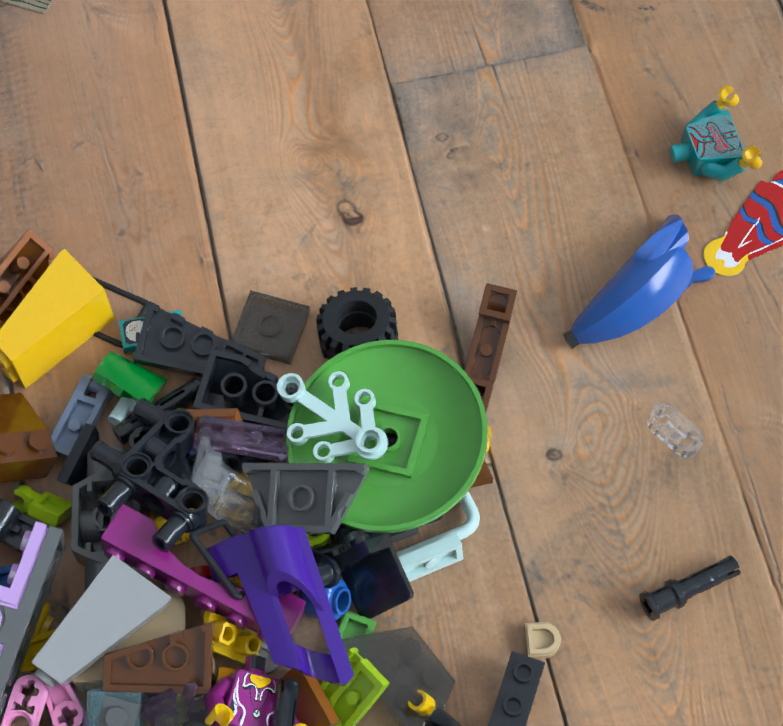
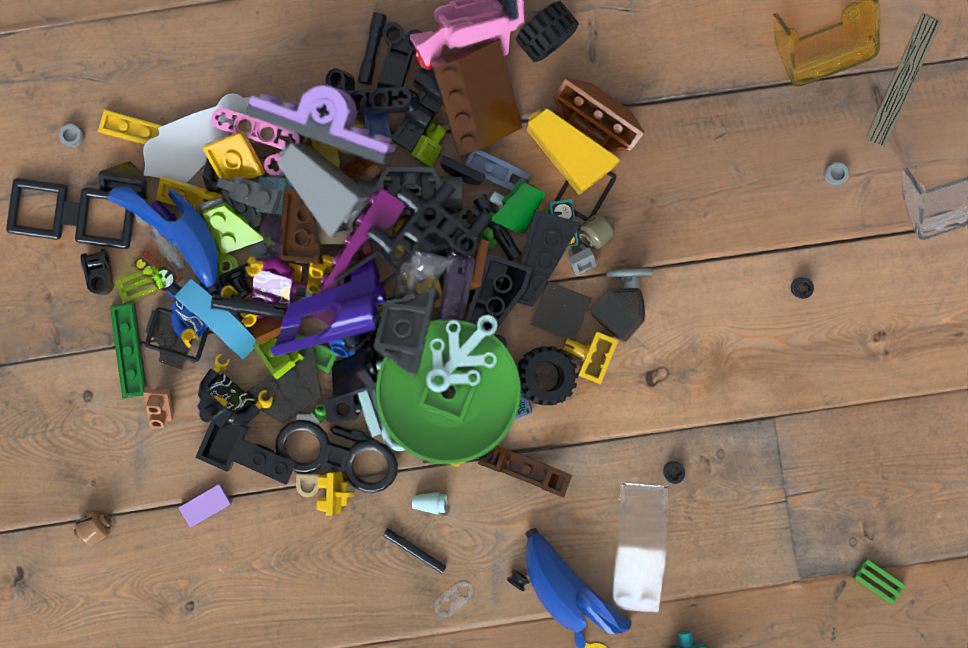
camera: 95 degrees right, 25 degrees up
(74, 580) = (362, 168): none -> clear orange tile
(86, 38) = (836, 173): none -> light grey tile
(162, 287) = (597, 231): none -> dark tan head
(202, 302) = (582, 261): none -> light grey tile
(228, 71) = (806, 294): none -> black bush
(266, 247) = (622, 309): none -> clear smoke piece
(326, 273) = (594, 356): none -> yellow brick
(427, 610) = (332, 409): none -> black brick
(442, 636) = (317, 416): none -> arm
(463, 581) = (354, 434): none -> black piece
(476, 177) = (679, 477): none -> black bush
(496, 597) = (339, 457): none -> black bar
(546, 467) = (430, 502): none -> light aqua cone
(565, 600) = (336, 494): none -> yellow hips
(568, 202) = (640, 547): none -> clear windscreen
(617, 487) = (415, 551): none -> black bar
(636, 349) = (518, 580): none -> black bush
(676, 593) = (331, 580): black pin -> none

